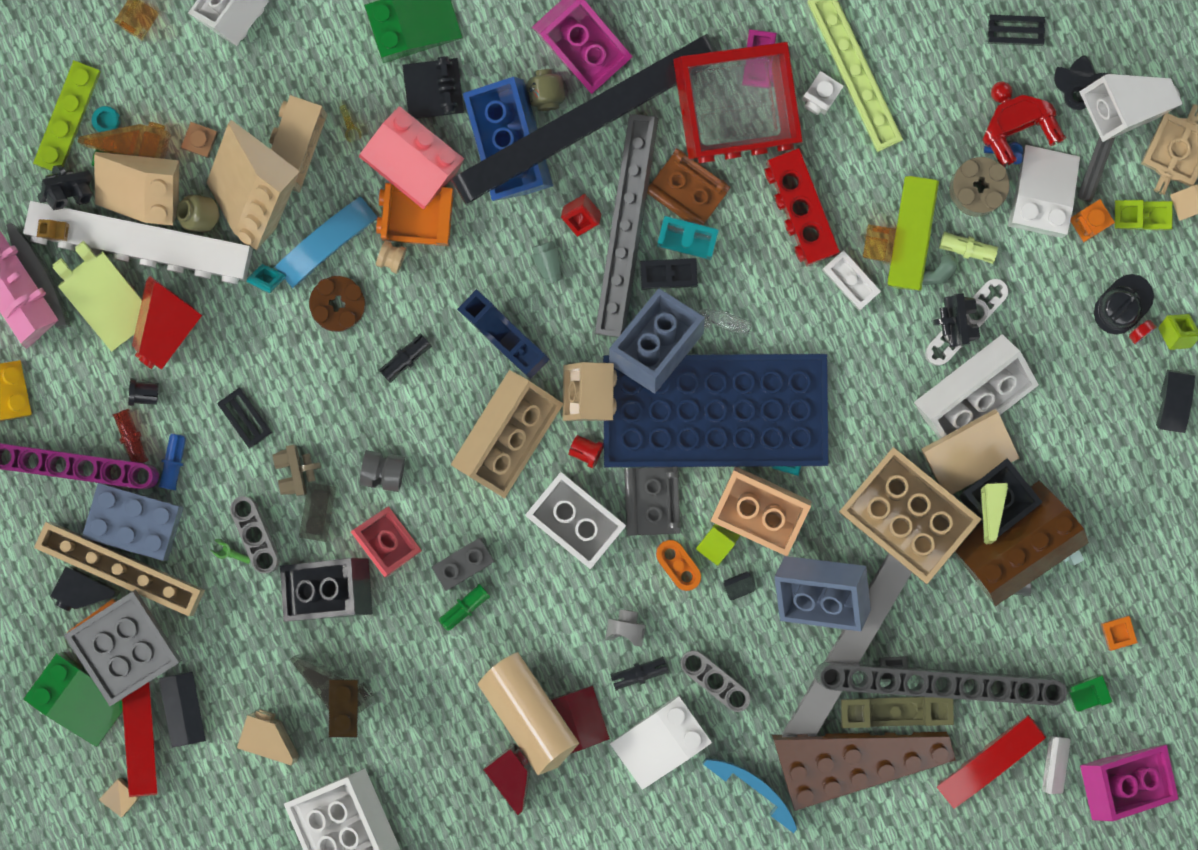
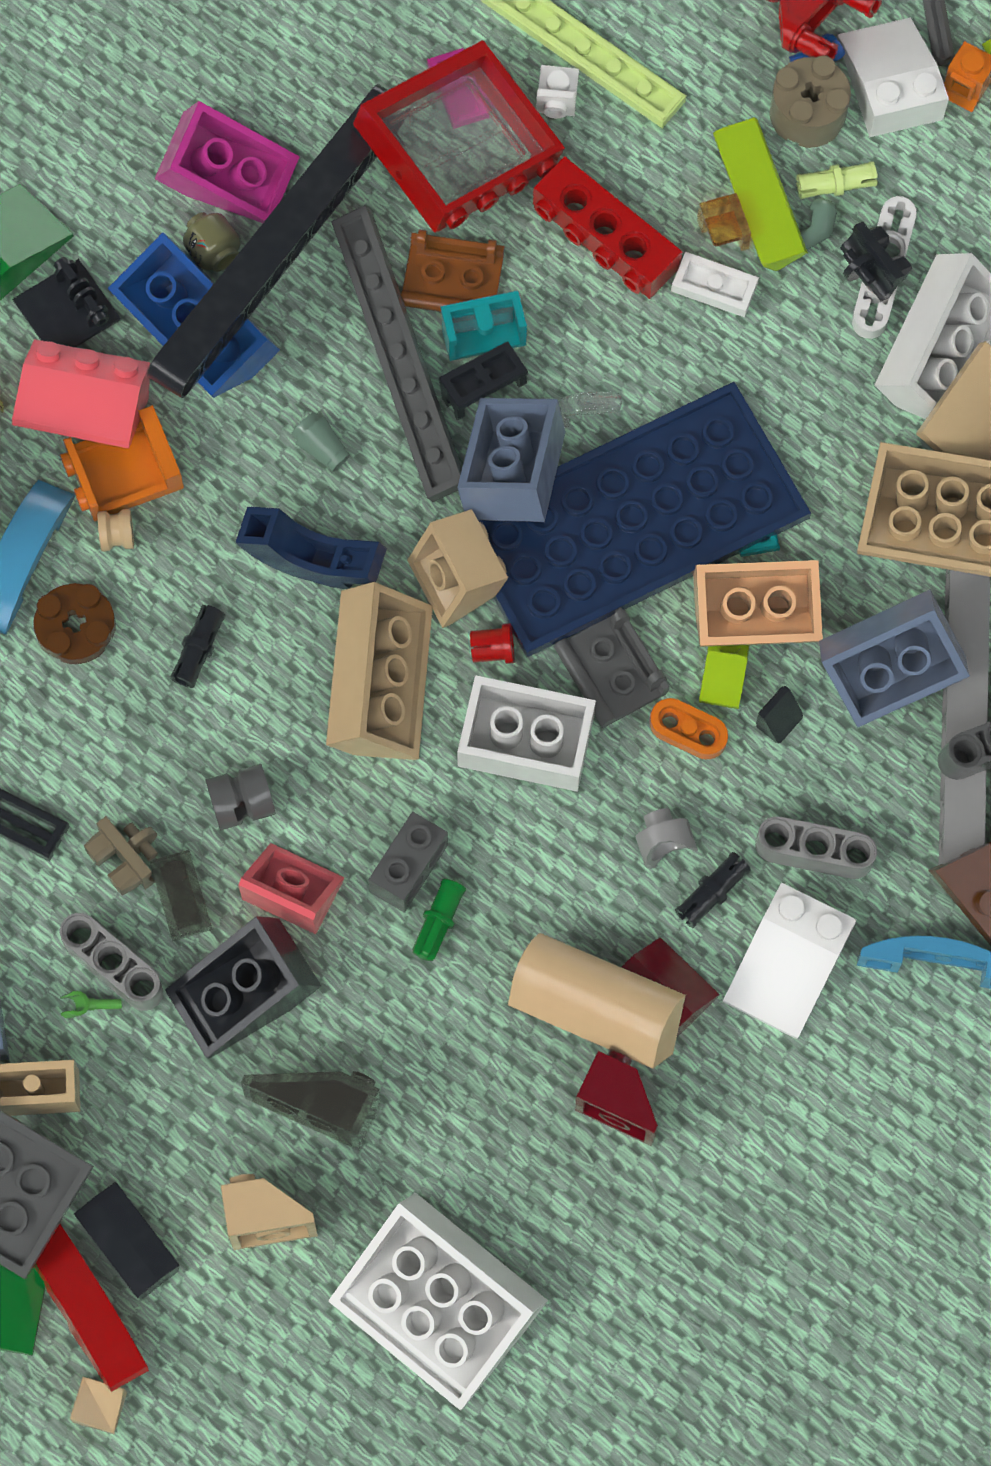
camera: 30 degrees left, 15 degrees down
(343, 707) = (347, 1107): dark brown plate -> none
(581, 215) = (334, 368): red slope -> none

